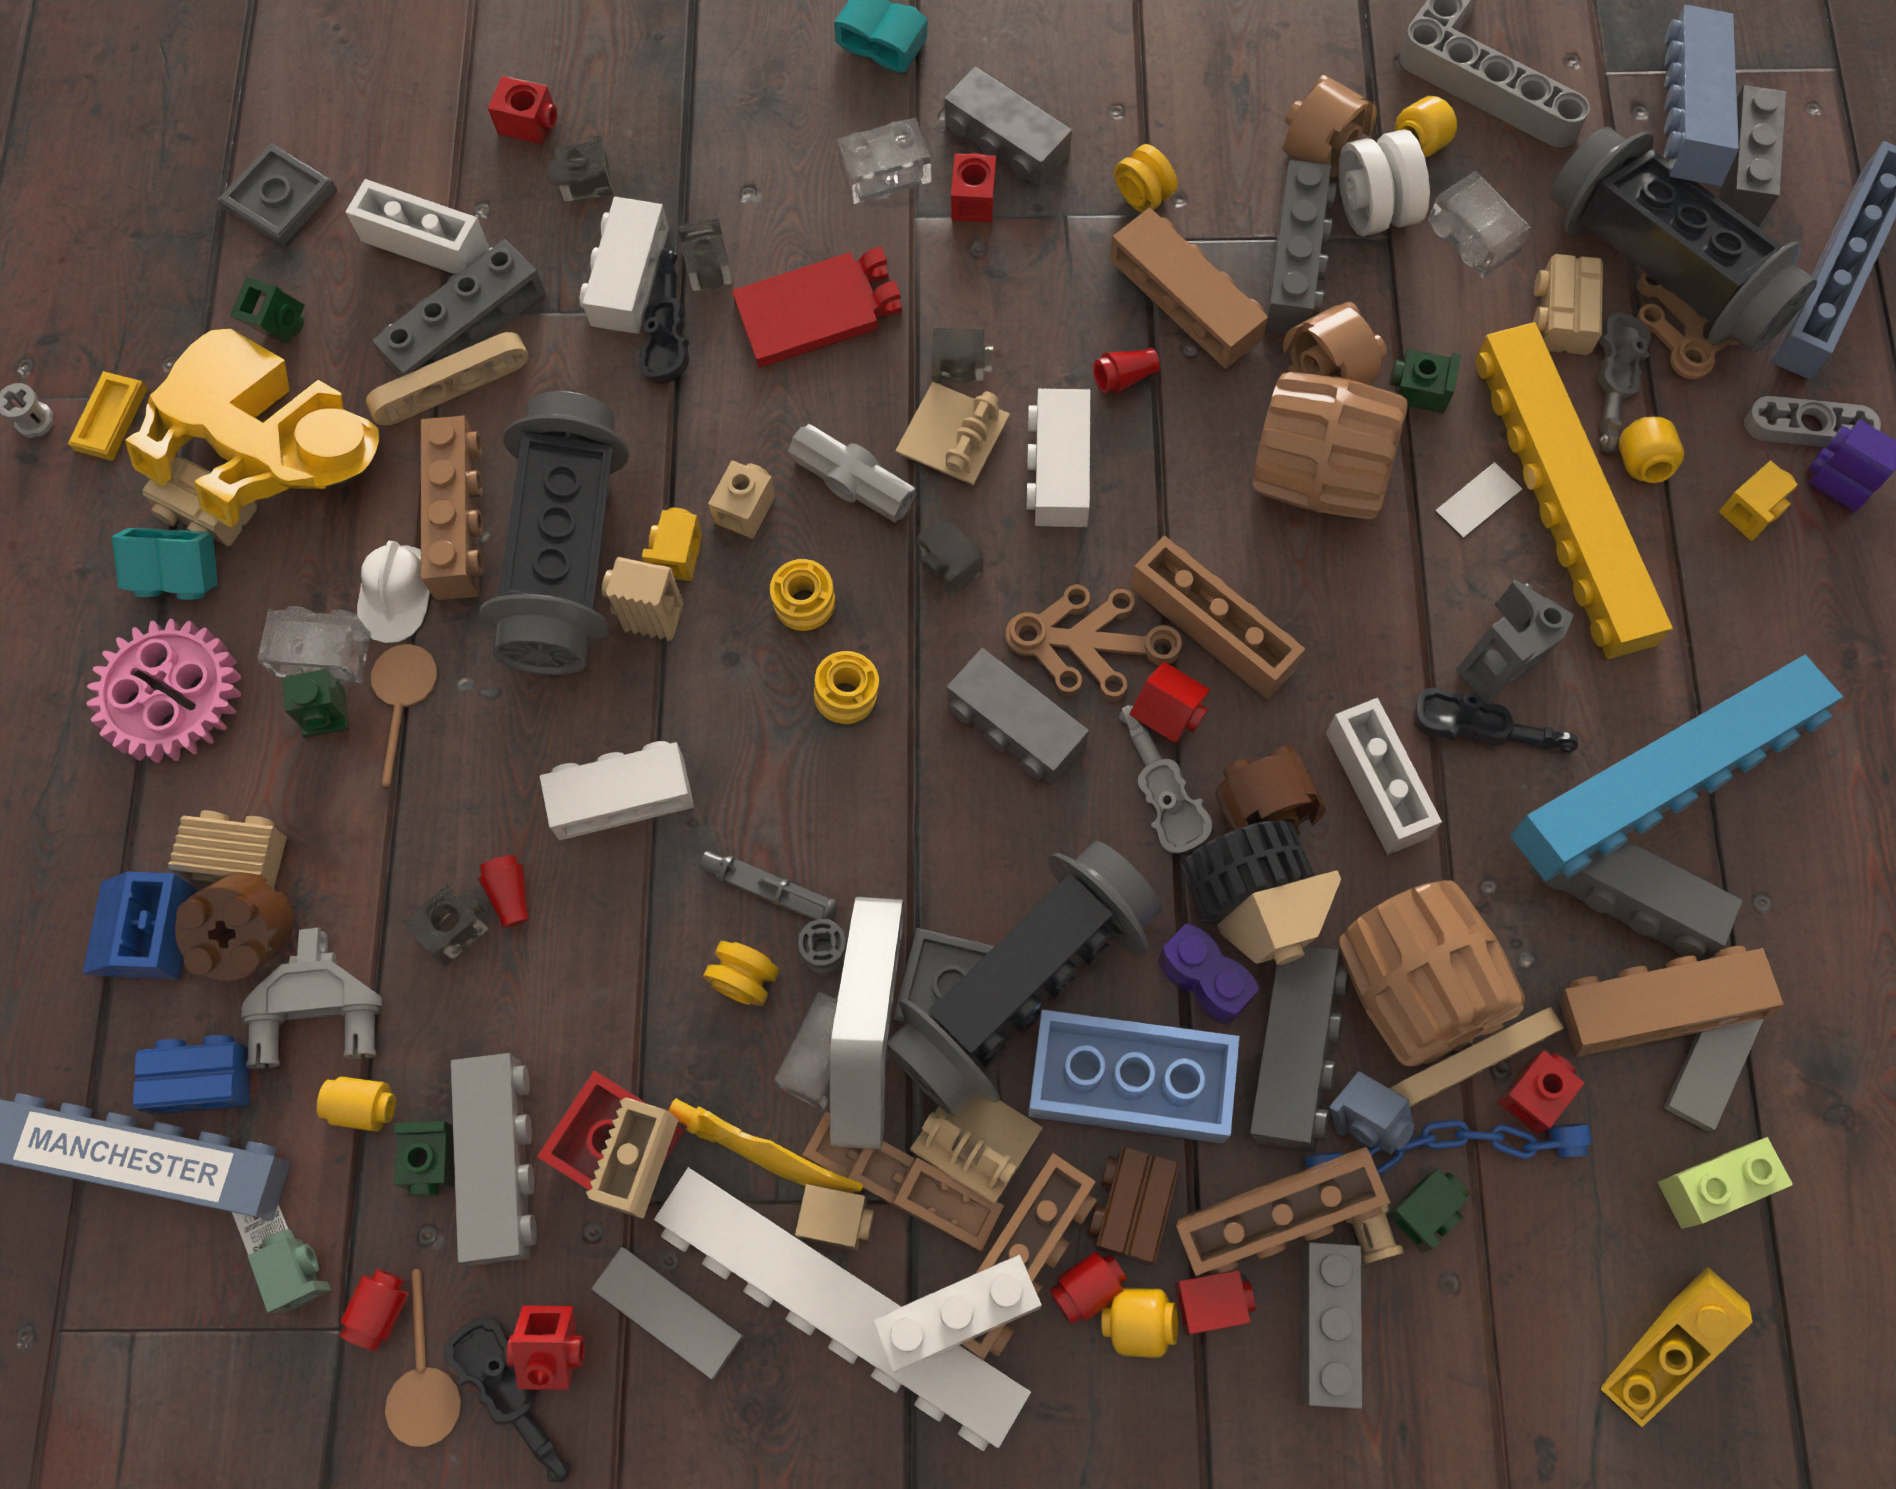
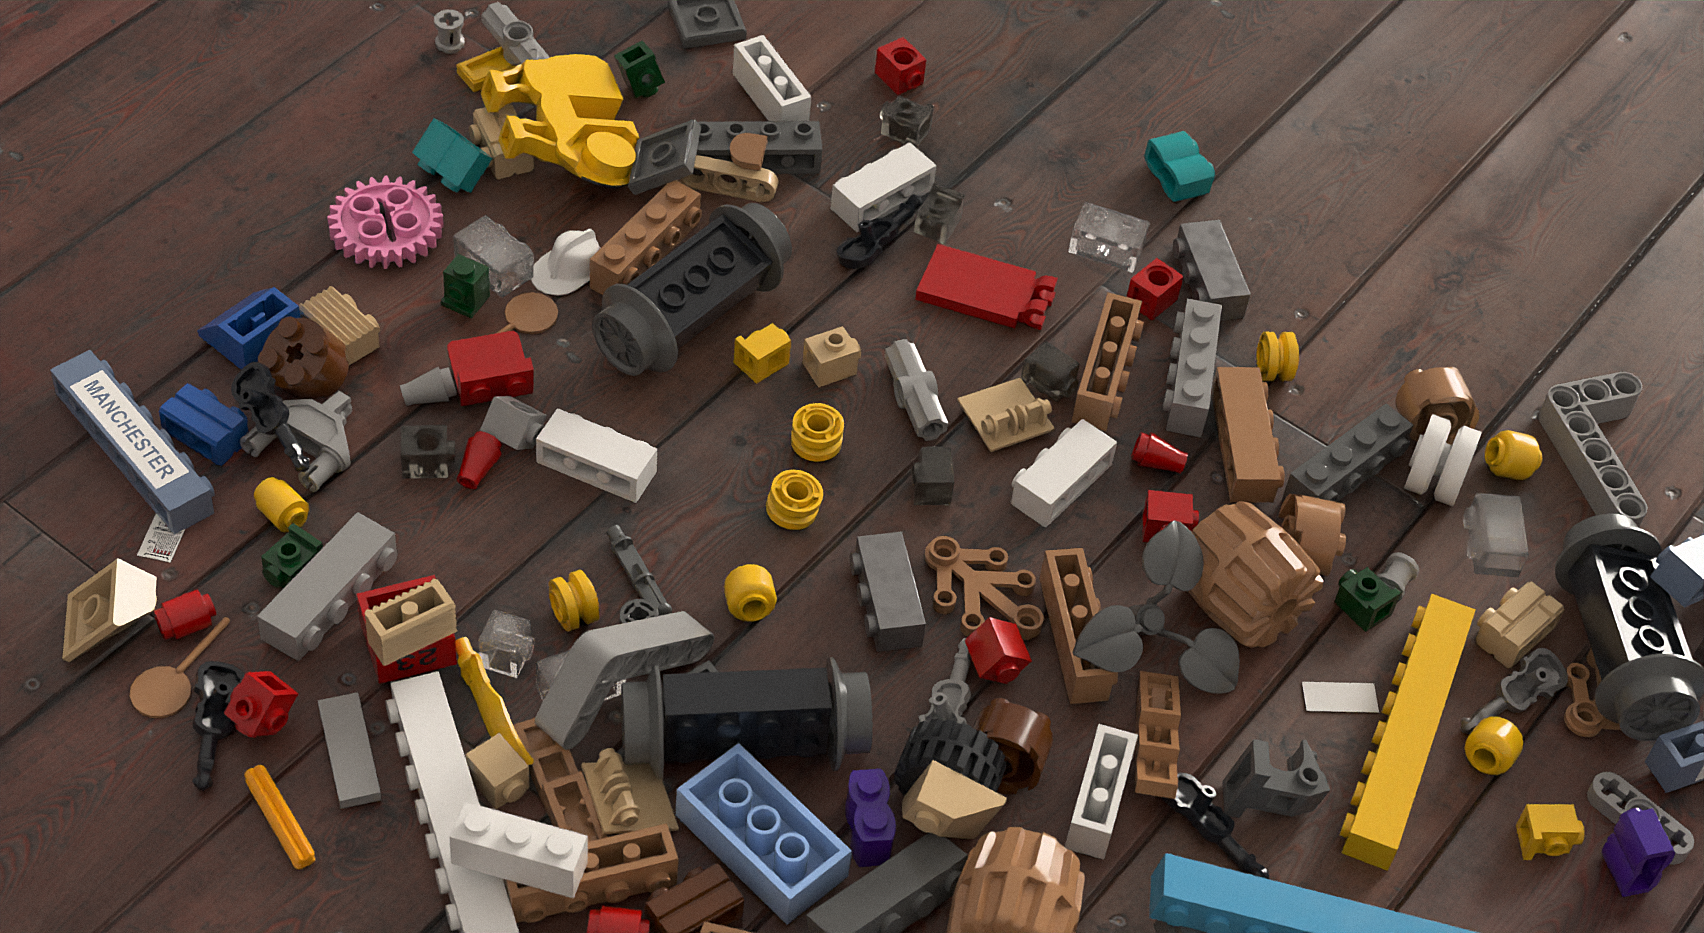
camera: 30 degrees right, 20 degrees down
(104, 370) = (512, 35): none -> light grey piece
(219, 1008) = (255, 391): none -> black piece
(286, 1272) = (158, 555): sand green brick -> none
(290, 1373) = (106, 606): none -> tan slope
(384, 846) = (430, 387): none -> light grey cone
(392, 400) = (664, 157): none -> dark grey tile
(424, 776) = (490, 367): none -> red bracket
(468, 328) = (748, 150): none -> medium nougat tile
(508, 823) = (513, 422): none -> light grey brick
(643, 597) = (714, 362): tan brick -> none
(667, 1443) = (279, 817): none -> light orange axle
(719, 1074) = (506, 643): none -> clear brick
(894, 825) = (750, 593): none -> yellow head
(1004, 304) = (1106, 361): none -> medium nougat brick
(1081, 249) = (1193, 367): none -> light grey brick
(1193, 432) = (1164, 507): none -> red brick
(1283, 617) = (1113, 633): none -> dark grey plant
(1371, 672) = (1158, 737): none -> medium nougat slope
(1431, 332) = (1399, 571): none -> light grey bush

